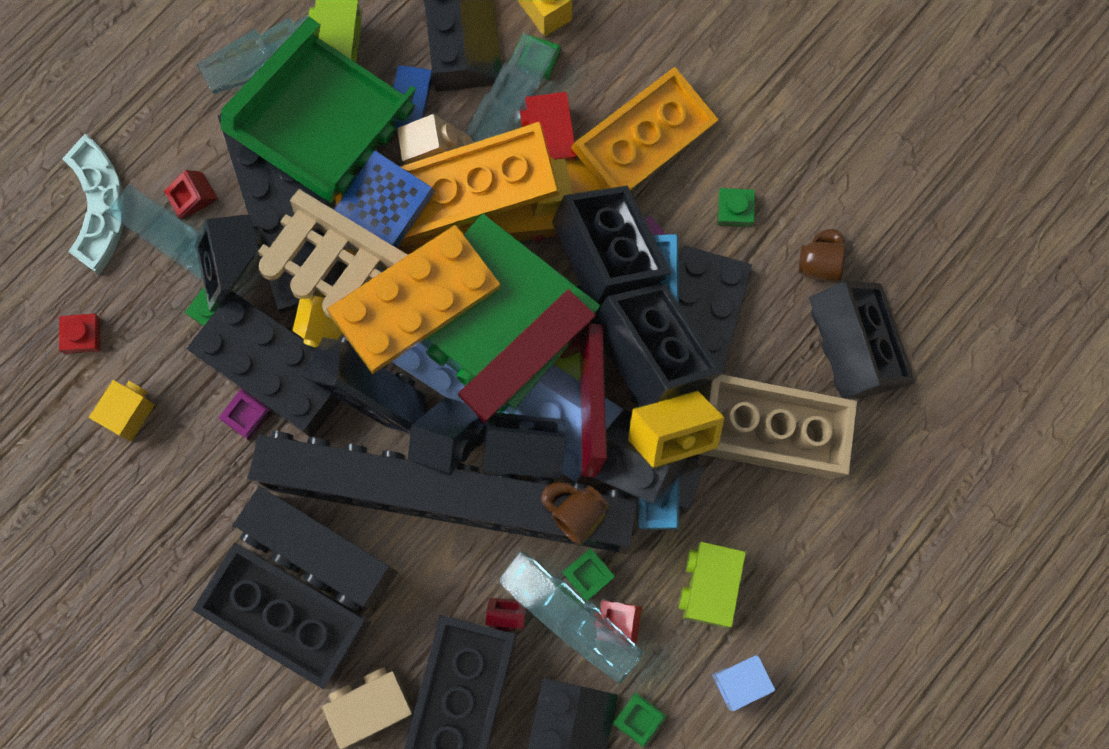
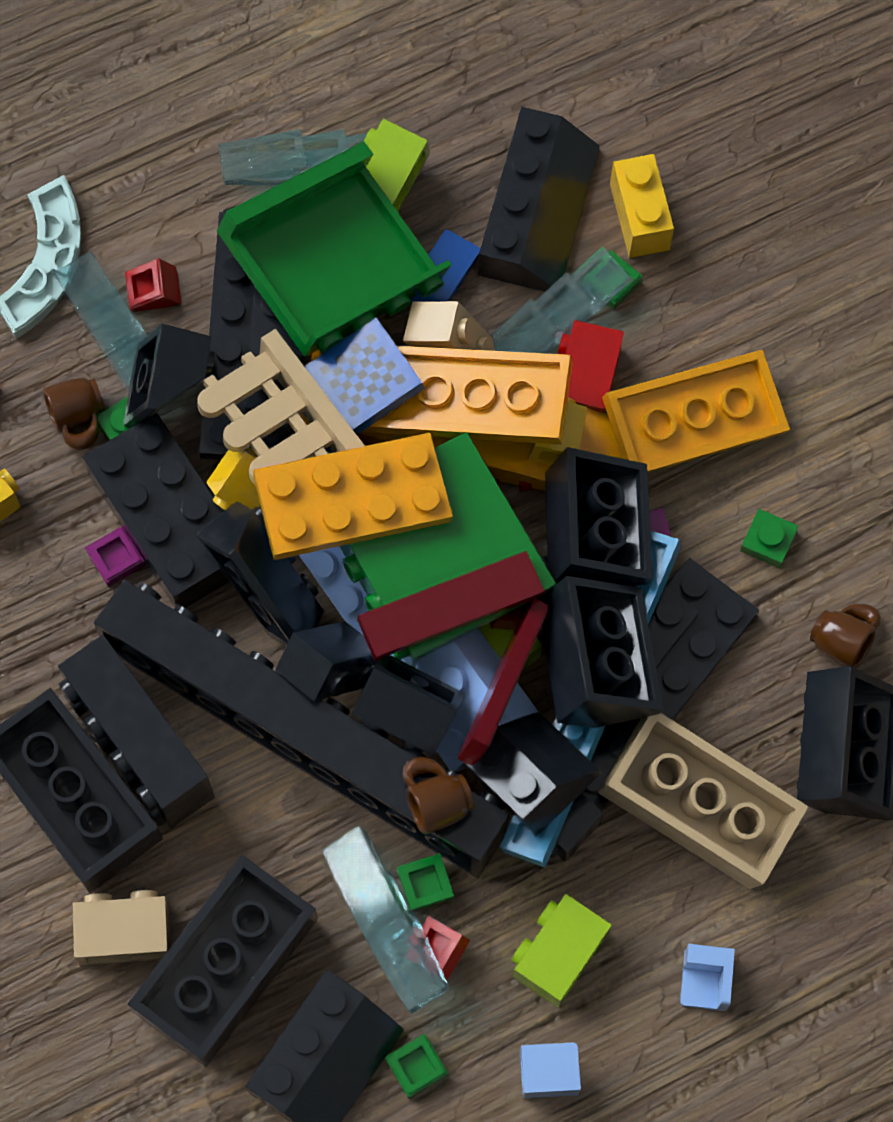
camera: 20 degrees right, 5 degrees down
(164, 309) = (72, 405): none -> reddish brown piece
(505, 614) = (315, 888): dark red plate -> none
(675, 428) = (581, 749): yellow brick -> none
(831, 560) = (707, 977): none -> light blue panel

